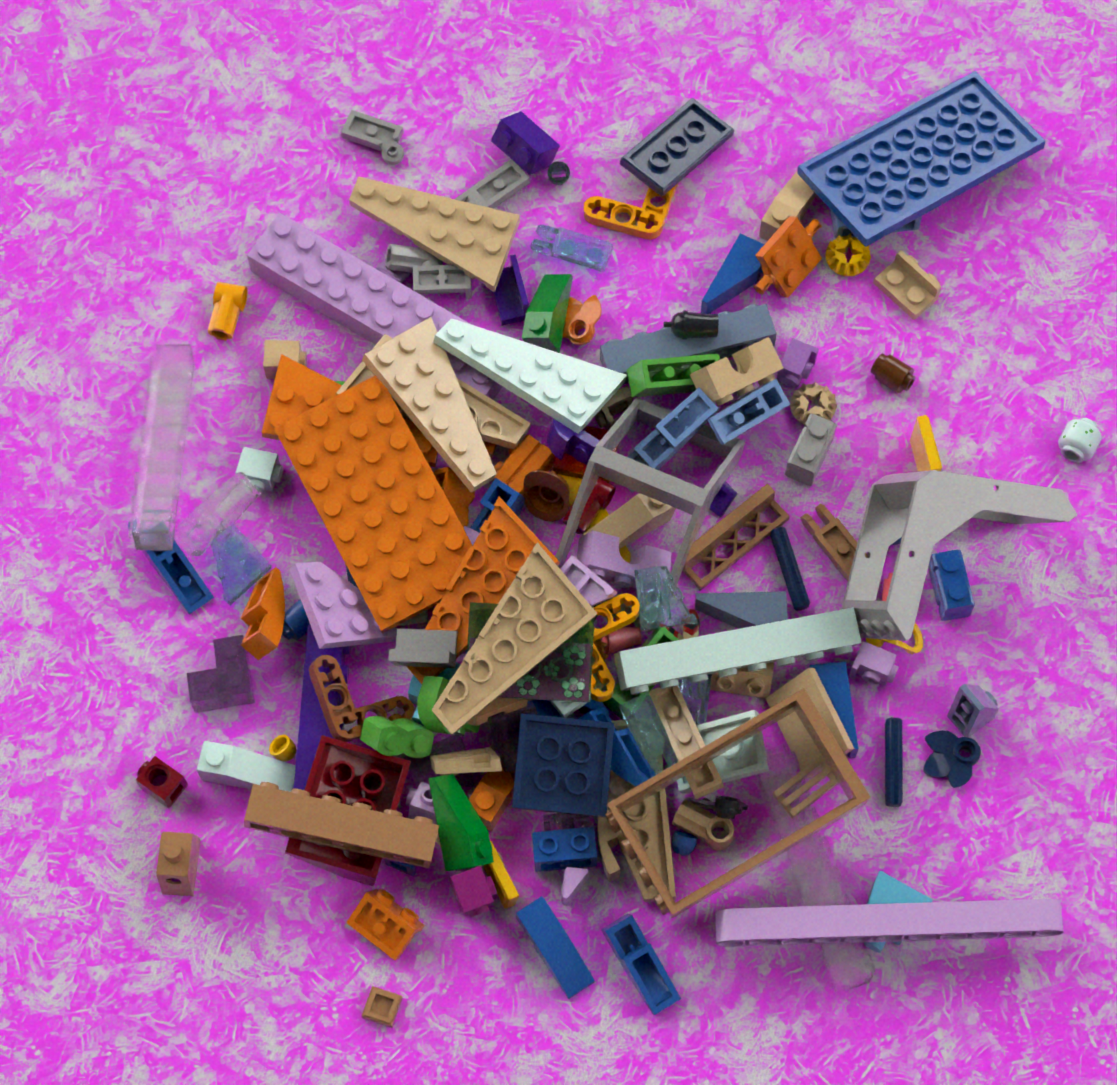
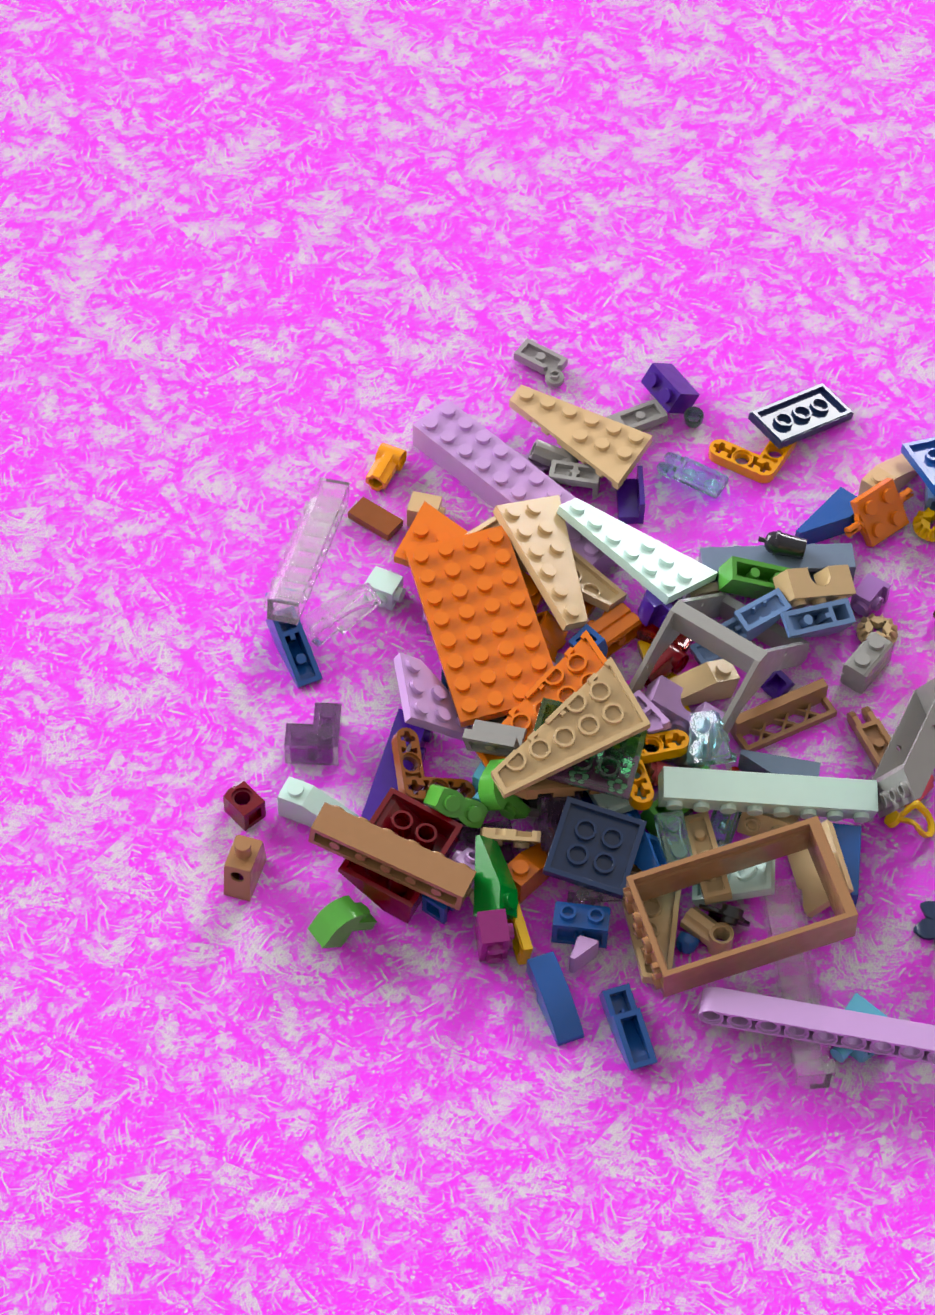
camera: 10 degrees right, 15 degrees down
(229, 379) = (375, 518): none -> dark orange tile
(237, 563) = (349, 655): clear light blue wing -> none
(264, 615) = (363, 695): orange slope -> none
(282, 748) = (354, 801): yellow hinge -> none
(295, 622) = (386, 707): blue brick -> none
(300, 905) = (339, 920): none -> bright green brick
(382, 1006) = (393, 1017): medium nougat tile -> none
(385, 922) = (410, 951): orange bracket -> none
(546, 495) = (627, 648): dark orange piece -> none
(548, 312) = (661, 515): green slope -> none
(580, 317) = (684, 529): orange plate -> none
(606, 839) = (619, 929): tan slope -> none
(785, 803) = (810, 905): tan tile -> none
(789, 568) = (828, 747): dark blue axle -> none
(874, 665) = (886, 837): lavender brick -> none
(893, 762) = (888, 918): dark blue axle -> none

